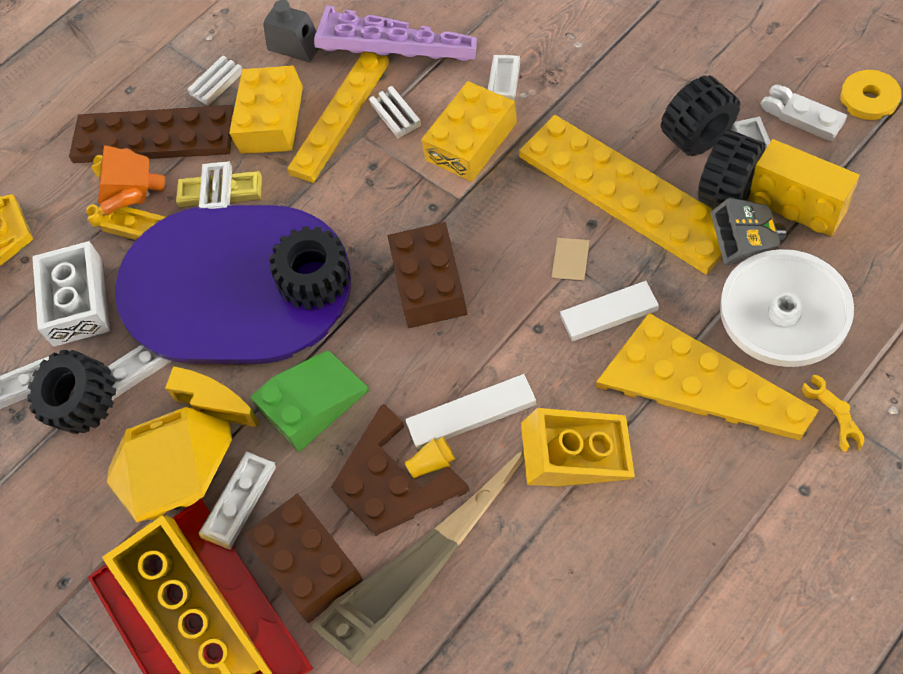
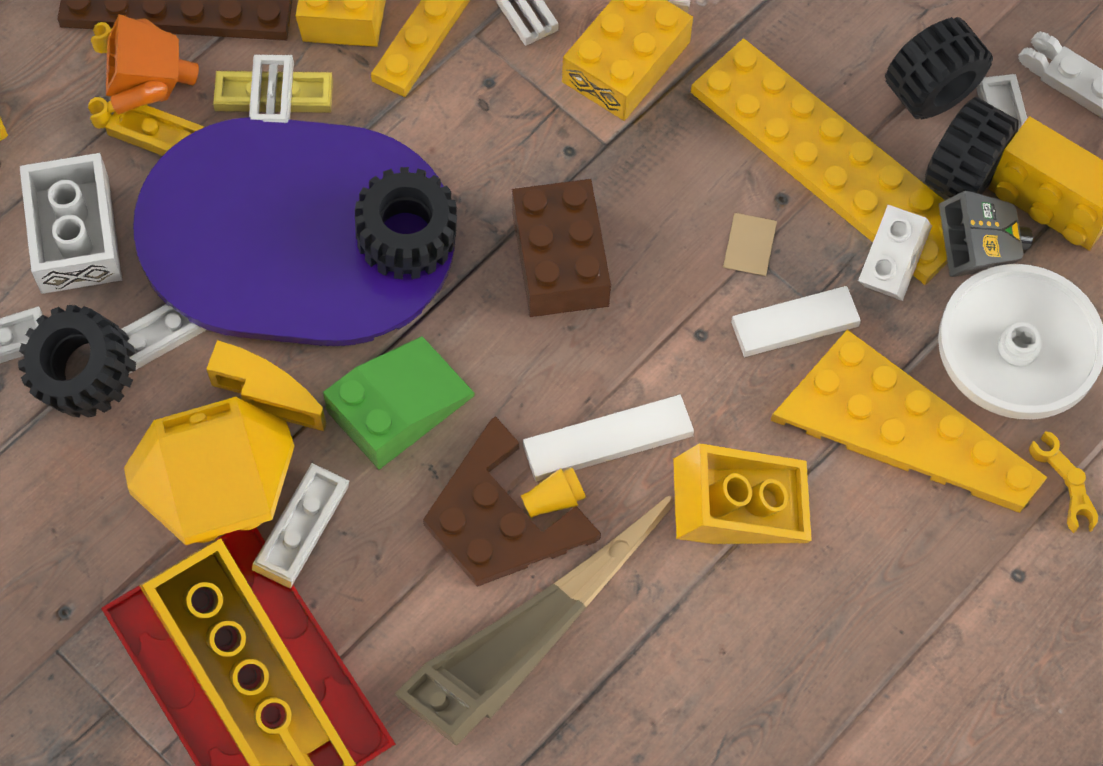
camera: 10 degrees left, 5 degrees up
(303, 557) = (386, 606): reddish brown brick -> none
(680, 250) = (895, 252): none -> white brick

